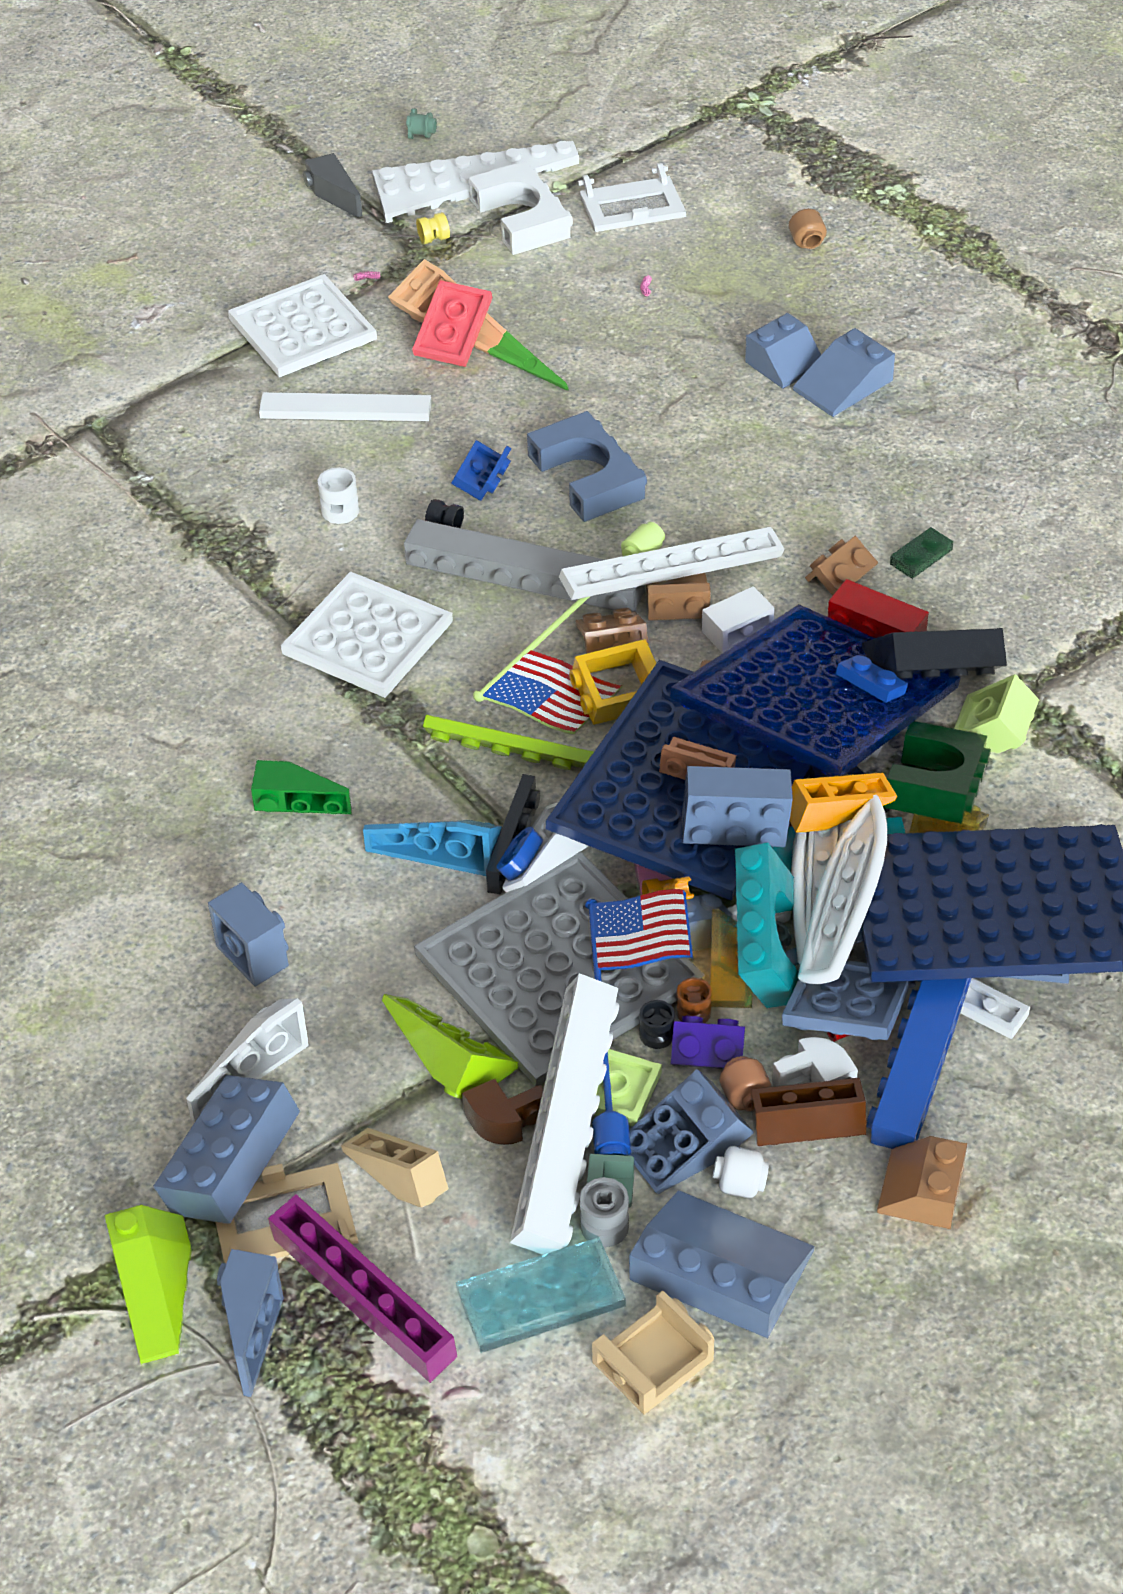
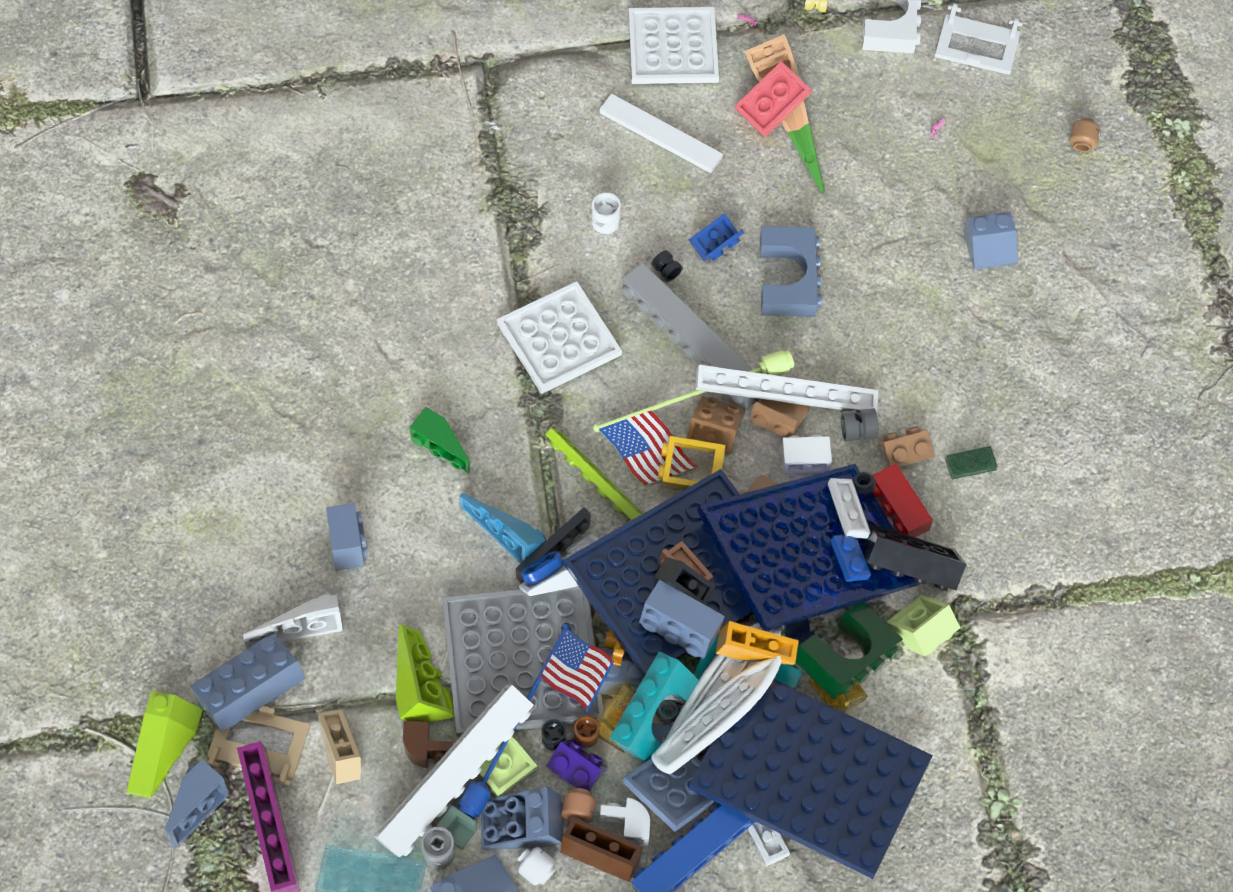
camera: 25 degrees right, 15 degrees up
(711, 750) = (685, 579): none -> black slope
(775, 566) = (859, 424): none -> dark grey wheel
(826, 611) = (864, 478): none -> black plate
(831, 635) = (848, 508): none -> white tile
(846, 372) = (1022, 282): sand blue slope -> none

